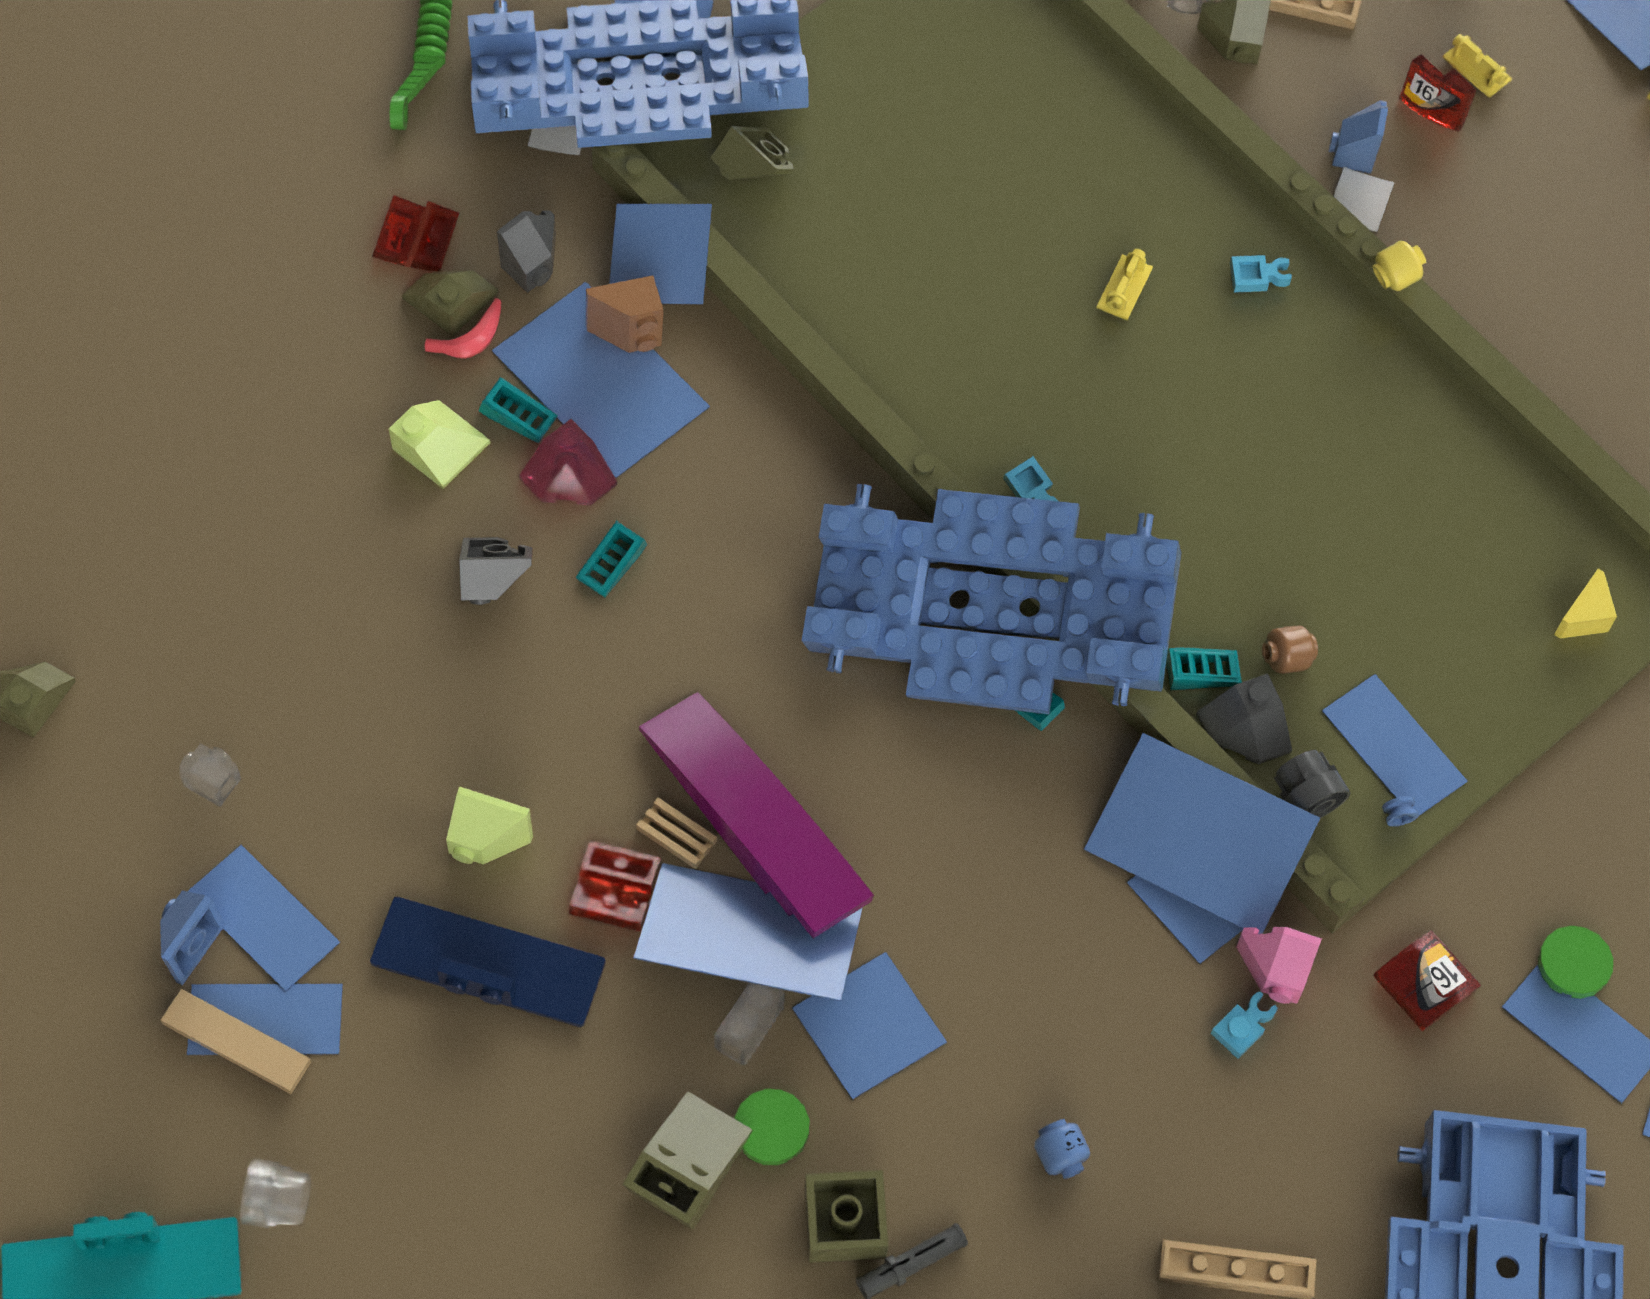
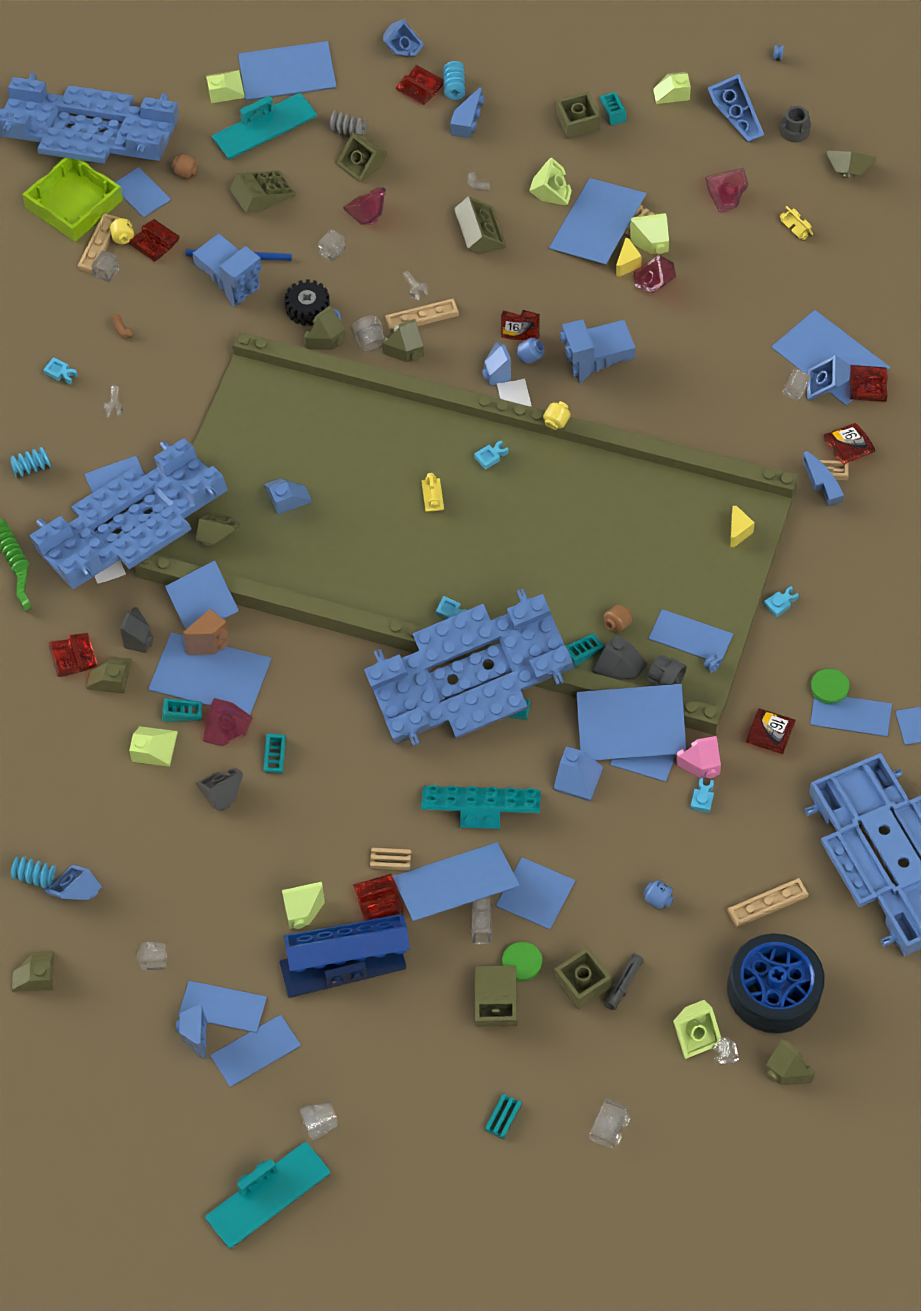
camera: 25 degrees left, 5 degrees down
(124, 535) = (32, 873): none -> medium azure piece
(170, 593) = (75, 884): none -> medium blue slope
(236, 1041) = (250, 1066): tan tile -> none
(474, 340) = (137, 690): coral piece -> none
(511, 930) = (347, 943): none -> blue slope
(756, 815) = (423, 830): magenta slope -> none
(875, 828) = (480, 805): none -> teal bracket
(899, 164) = (287, 495): none -> medium blue slope
(1062, 869) = (577, 774): none -> medium blue slope
(1429, 142) = (530, 350): none -> medium blue head
(1476, 66) = (529, 303): light yellow hinge -> none
(1536, 190) = (596, 347): none -> medium blue brick
(1578, 774) = (780, 603): none -> medium azure plate

